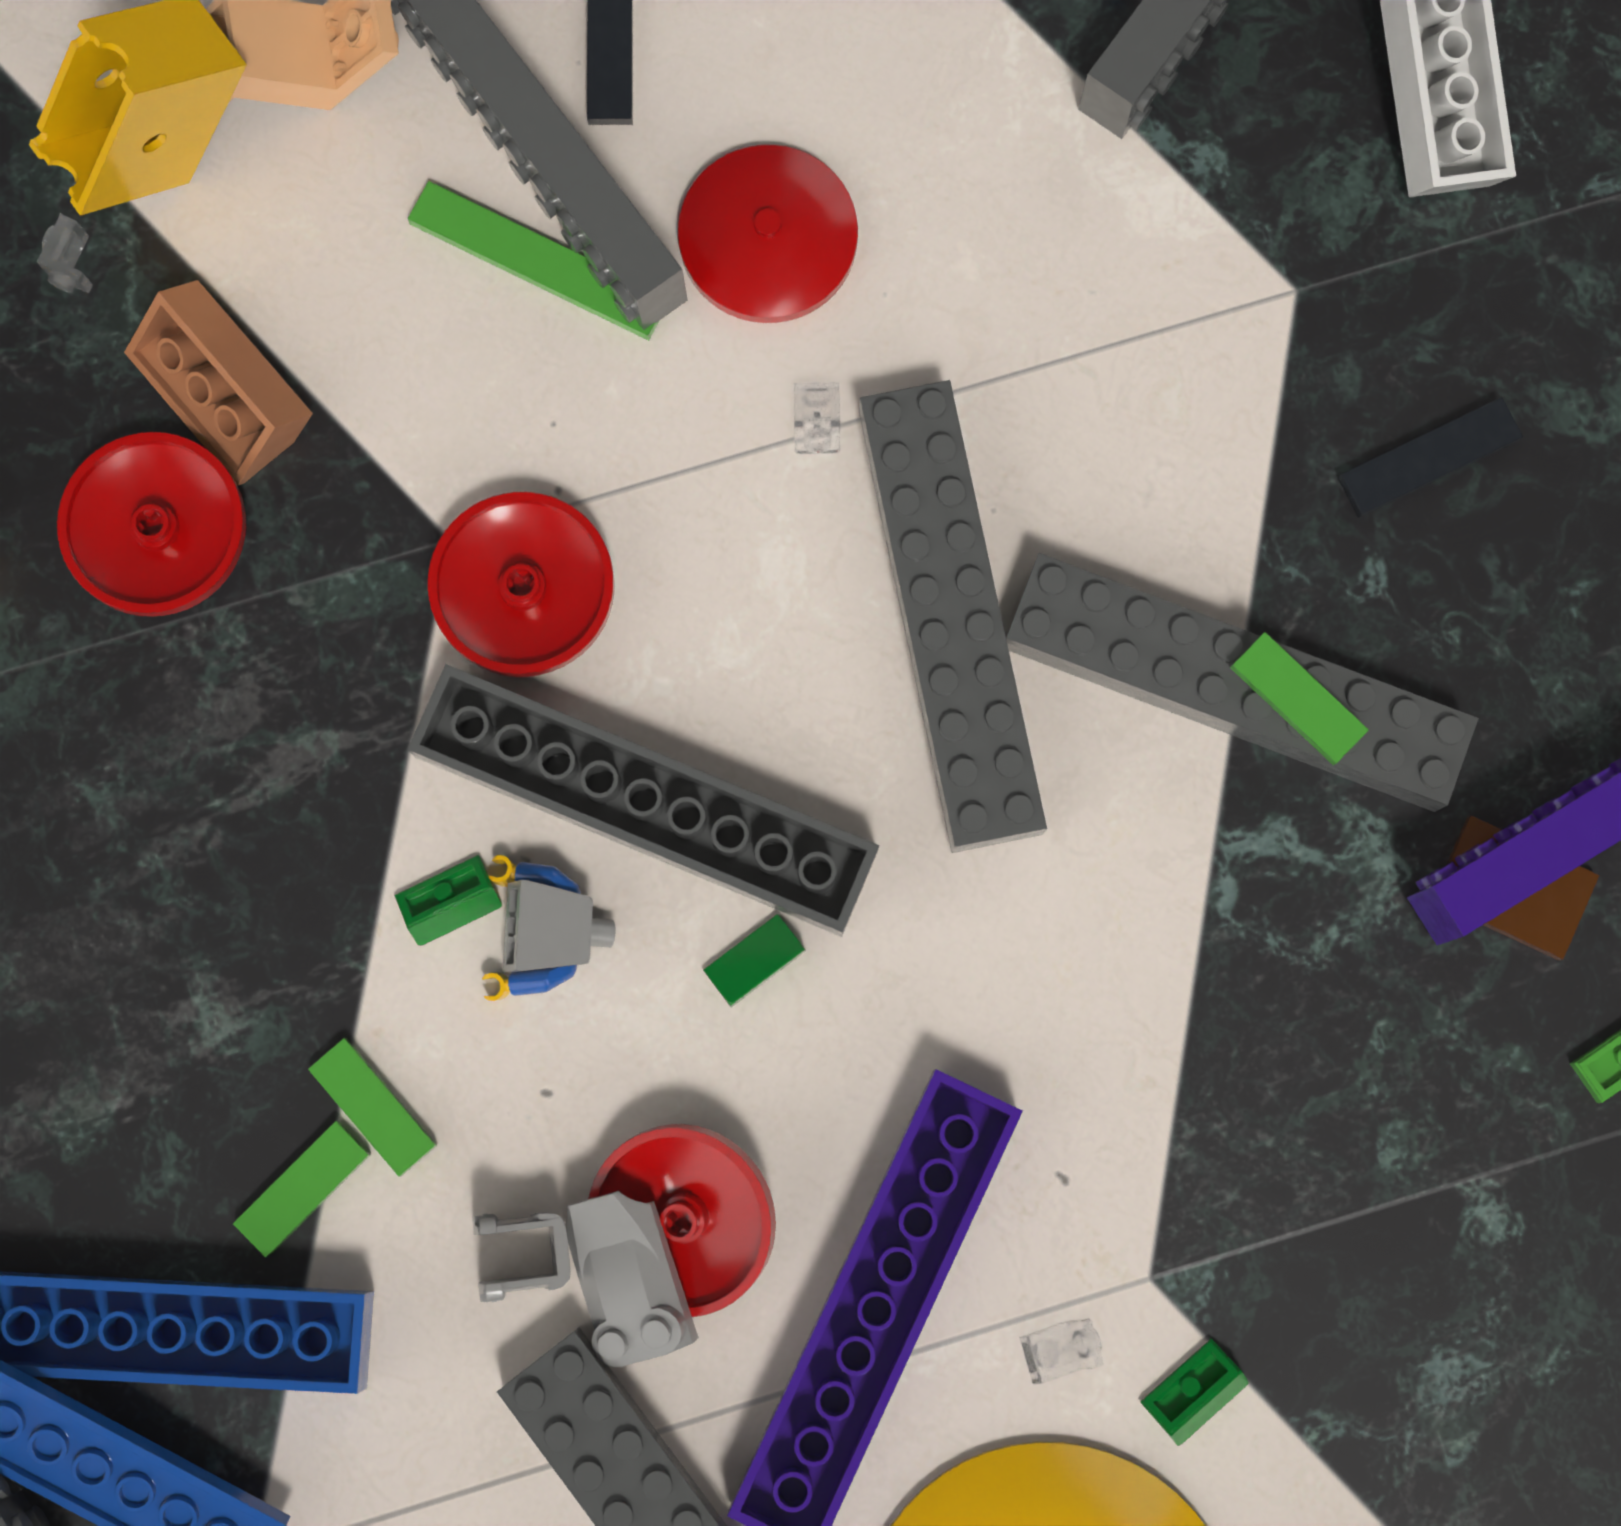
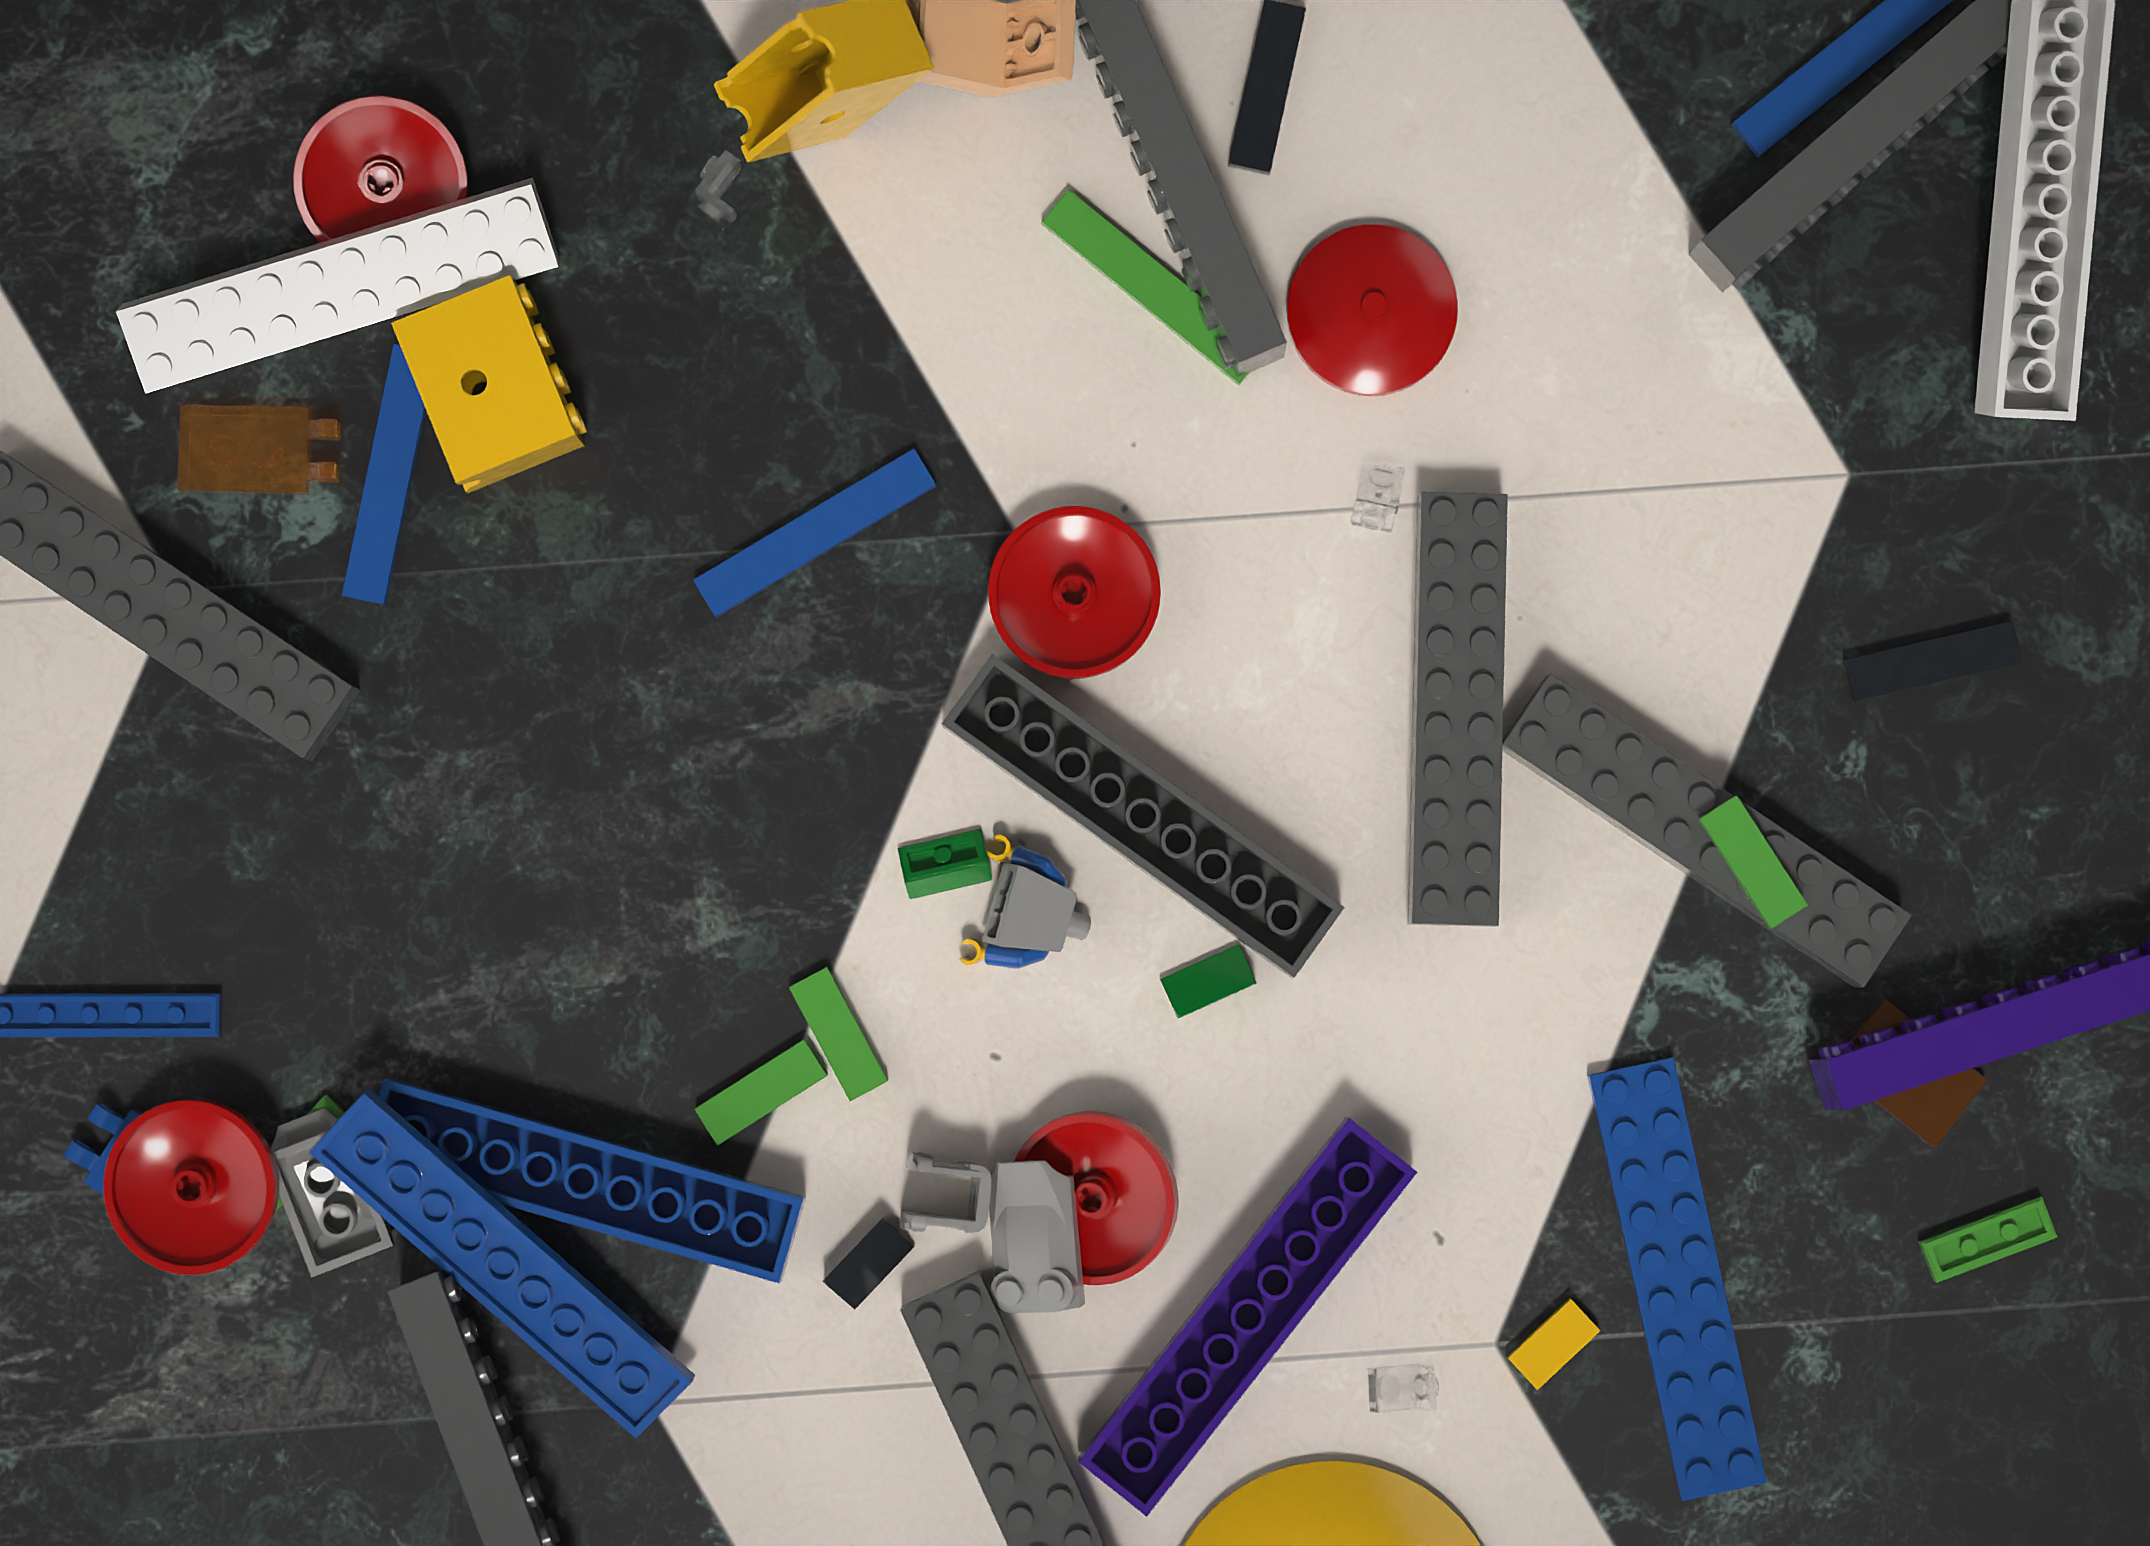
camera: 10 degrees right, 5 degrees up
(151, 524) = (750, 460): red dish -> none
(216, 380) = (834, 337): nougat slope -> none
(257, 572) = (815, 533): none -> blue tile
(455, 1348) = (868, 1263): none -> black slope
(1195, 1392) = (1511, 1452): green slope -> none
(1211, 1263) = (1553, 1343): none -> yellow tile
(1327, 1166) = (1676, 1279): none -> blue plate

